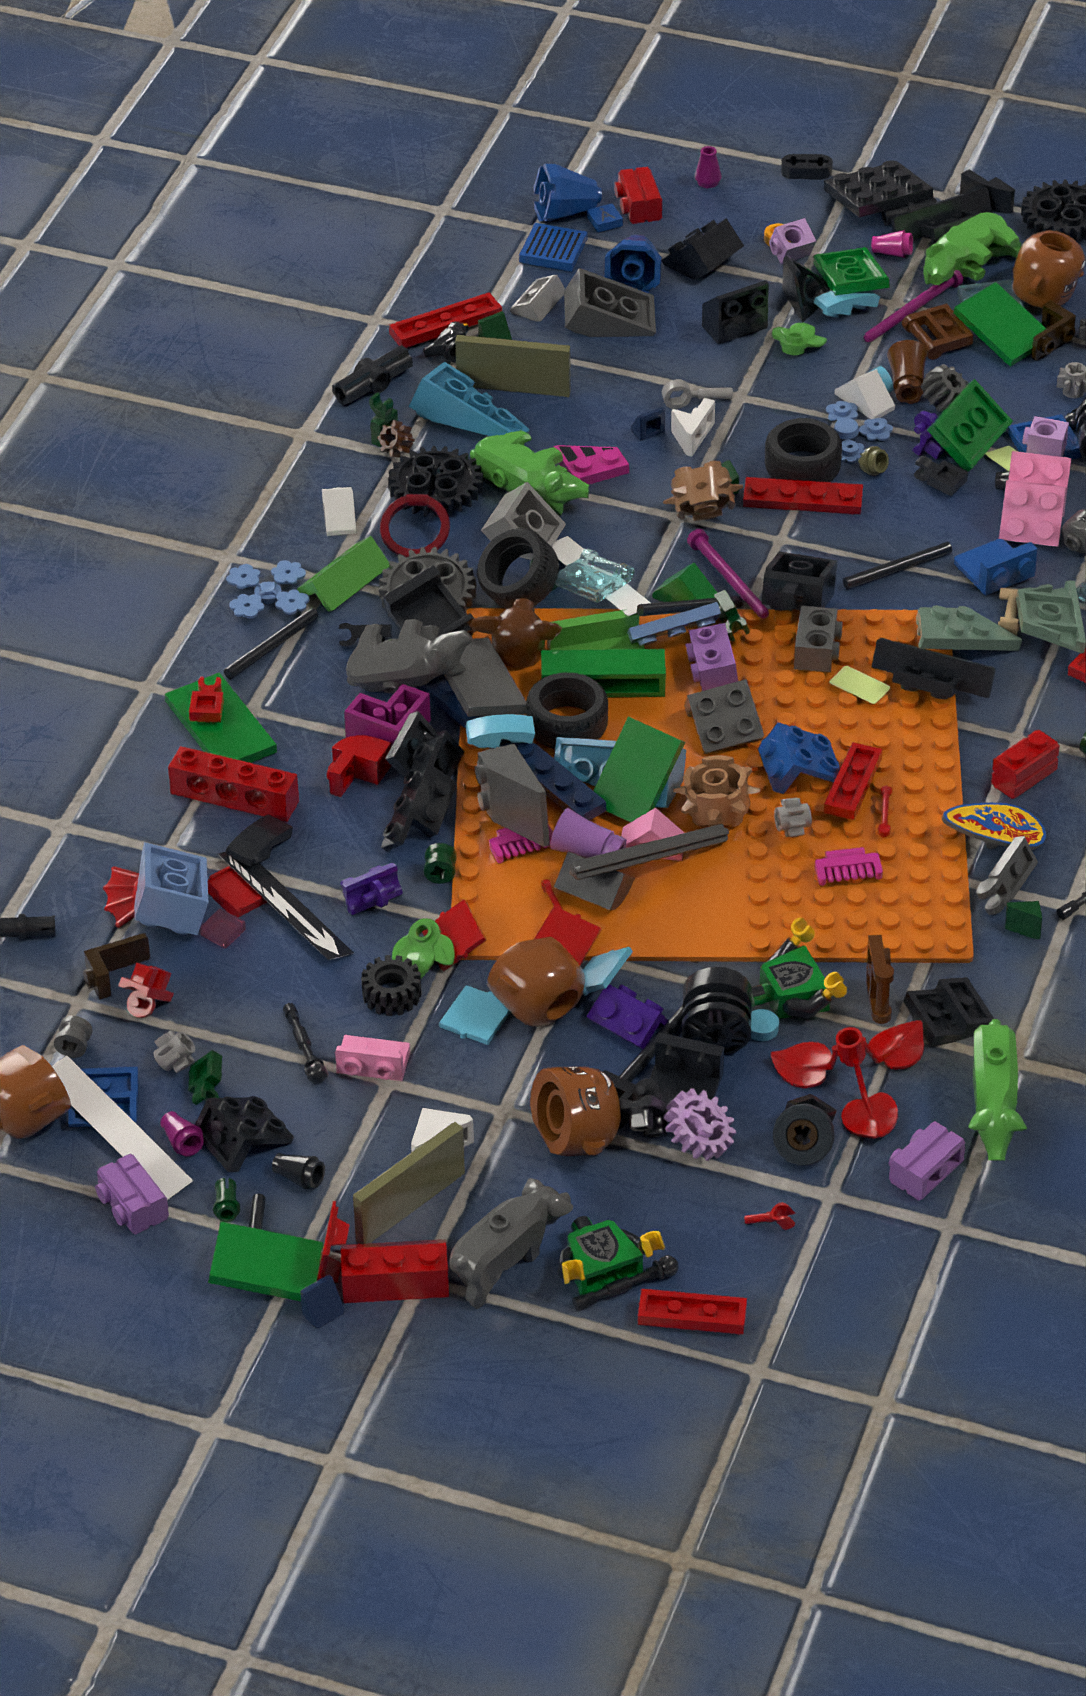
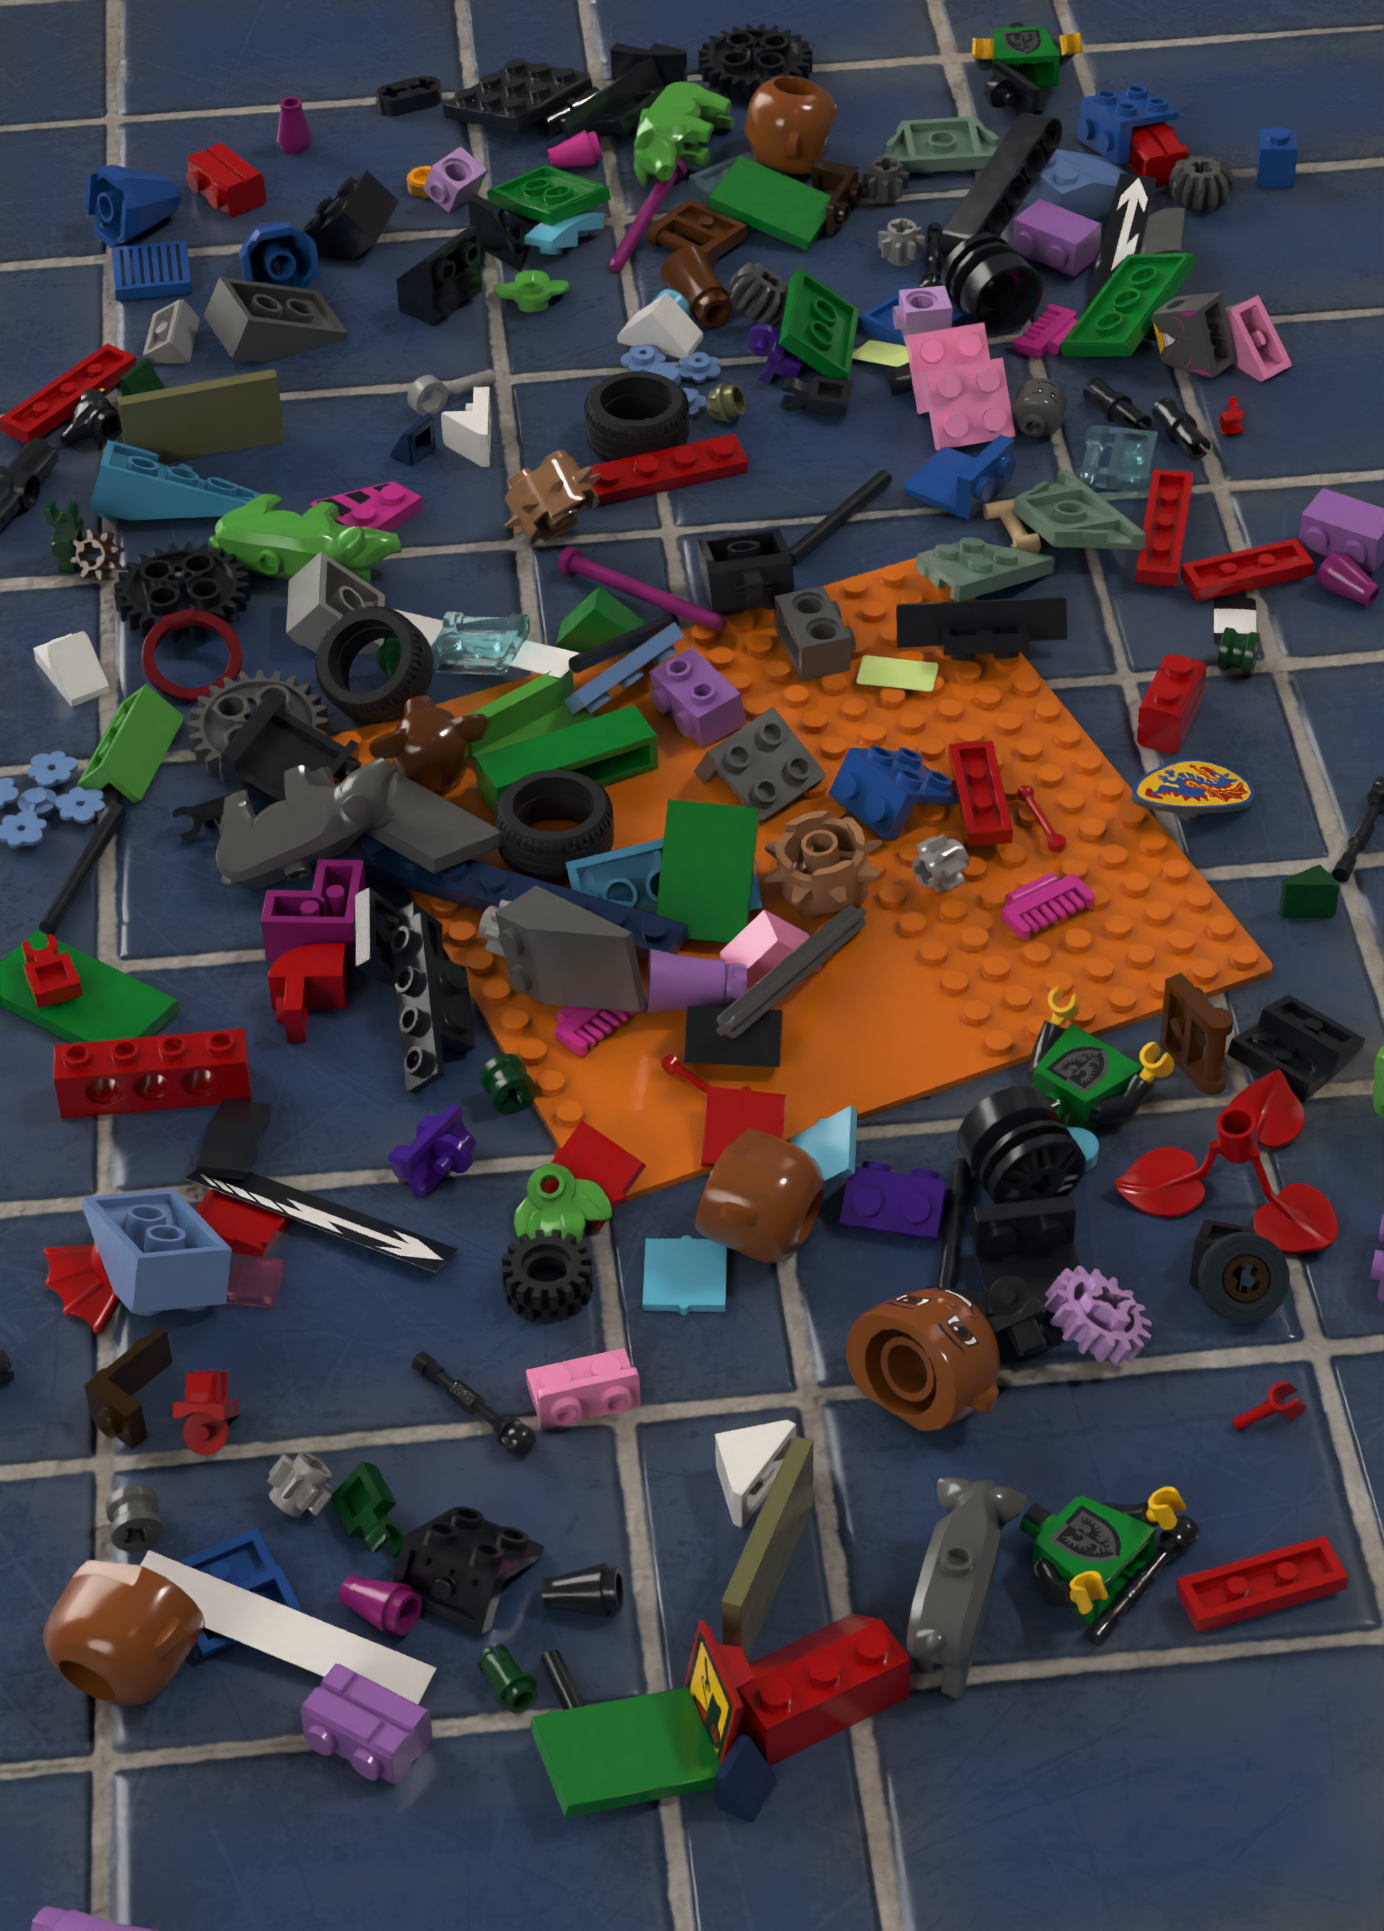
camera: 25 degrees left, 0 degrees up
(489, 730) = (483, 879): medium azure slope -> none
(604, 217) = (195, 219): blue tile -> none
(730, 615) = (691, 638): dark green plate -> none
(1007, 875) = (1249, 850): dark grey hinge -> none

